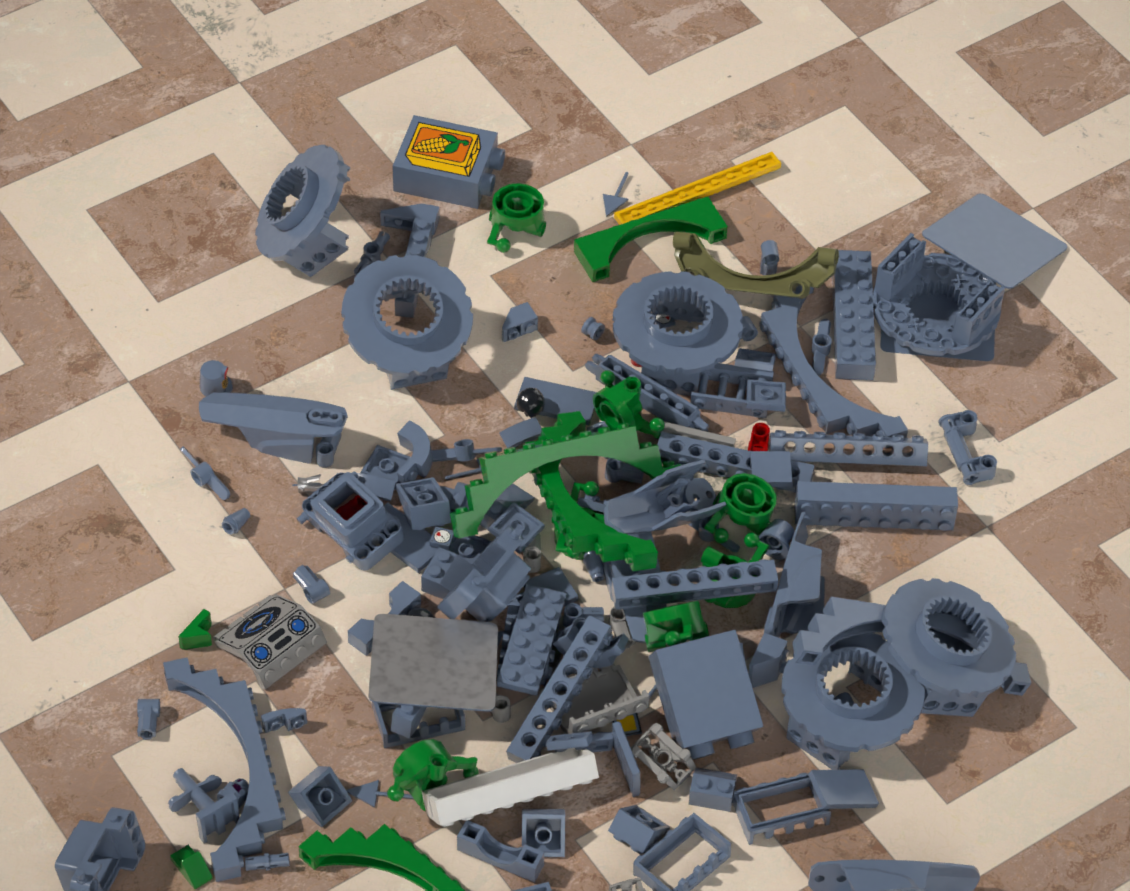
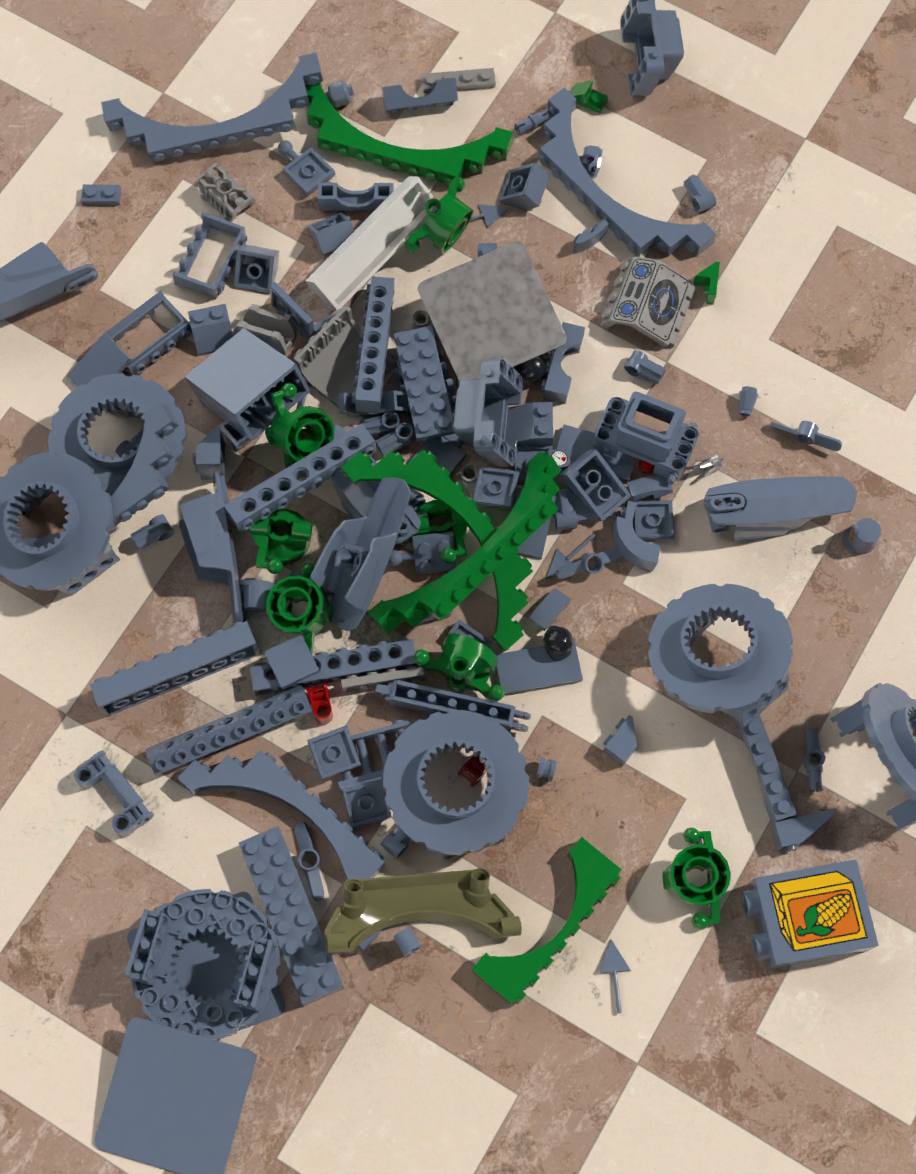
camera: 155 degrees right, 20 degrees up
(212, 815) = (592, 131): sand blue piece -> none
(574, 740) = (339, 298): sand blue plate -> none
(701, 188) = (529, 1022): yellow plate -> none

